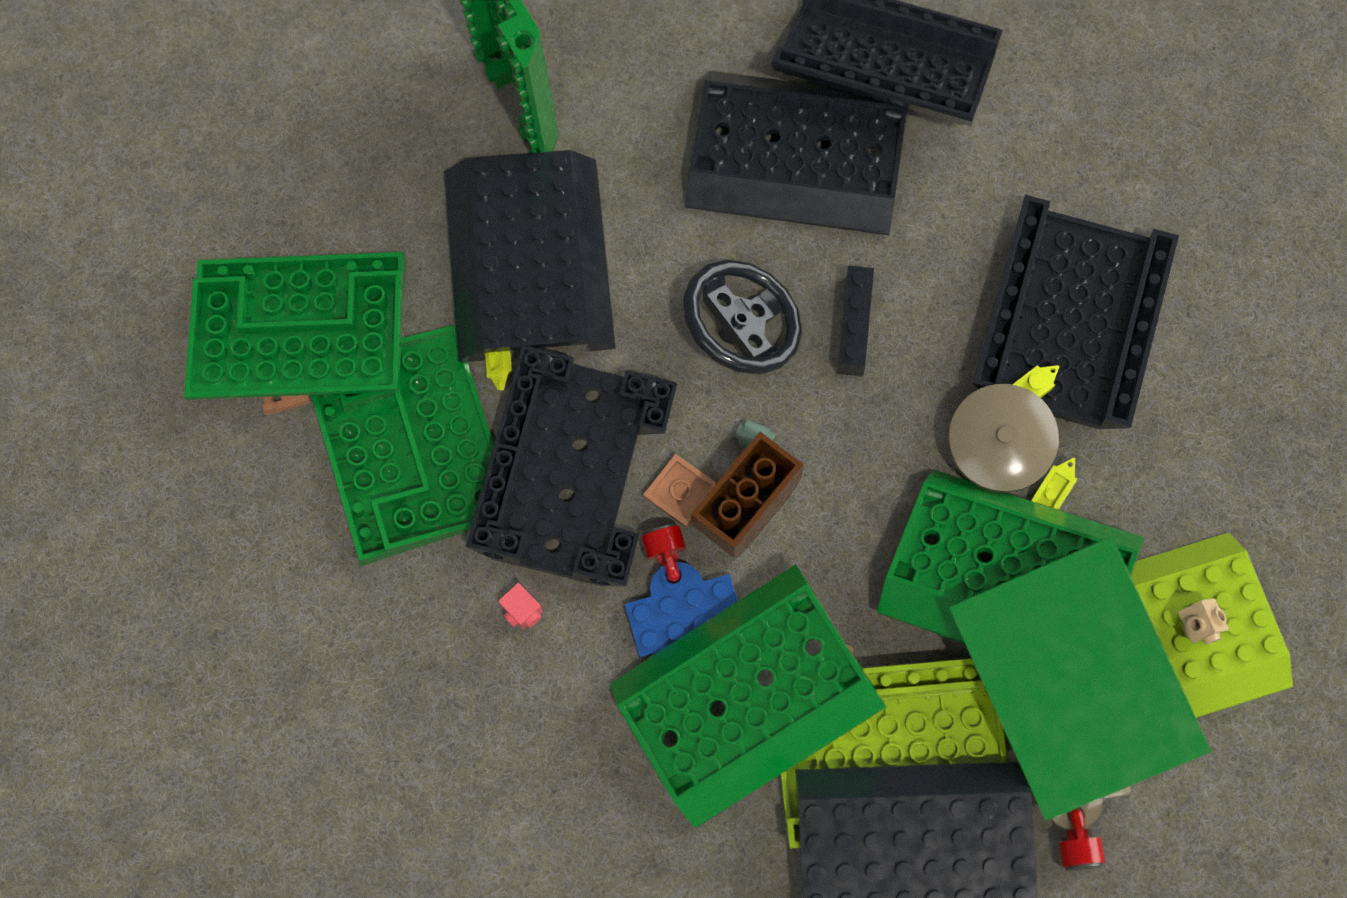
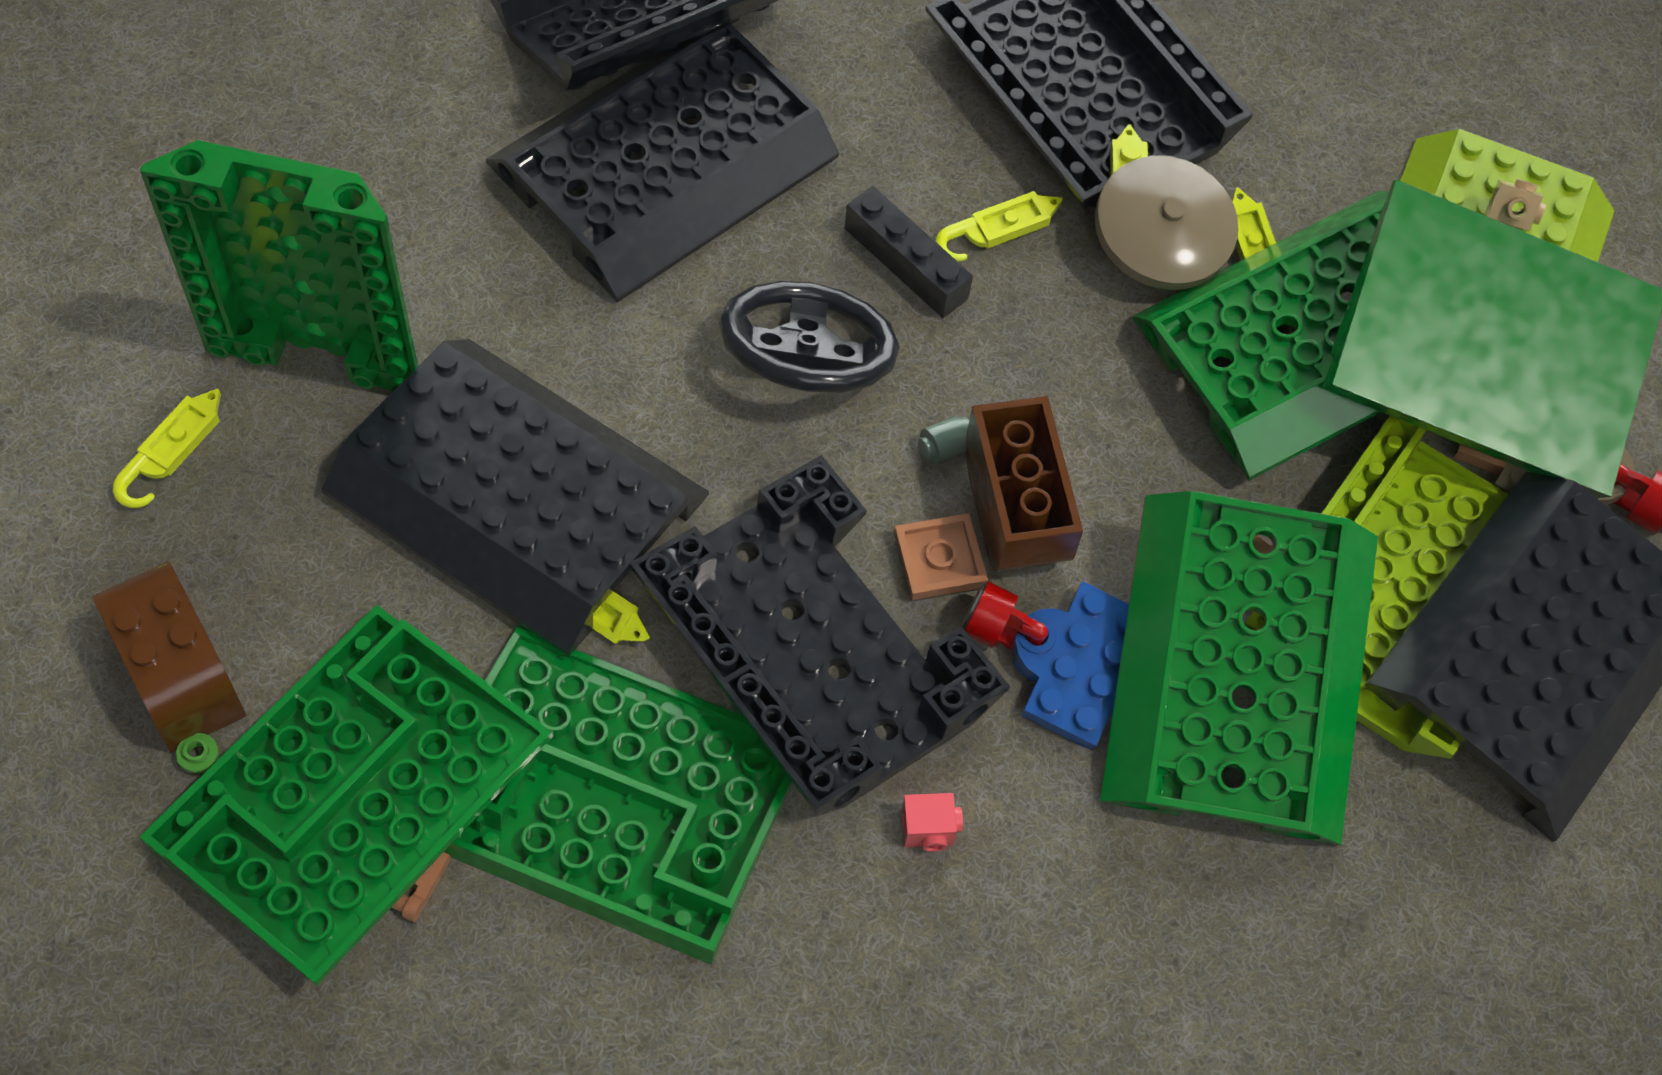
camera: 60 degrees left, 10 degrees down
(266, 251) = (202, 762): none -> bright green plate
(291, 187) = (169, 655): none -> reddish brown brick
(407, 84) = (169, 445): none -> neon yellow plate
(926, 352) = (1002, 222): none -> neon yellow plate

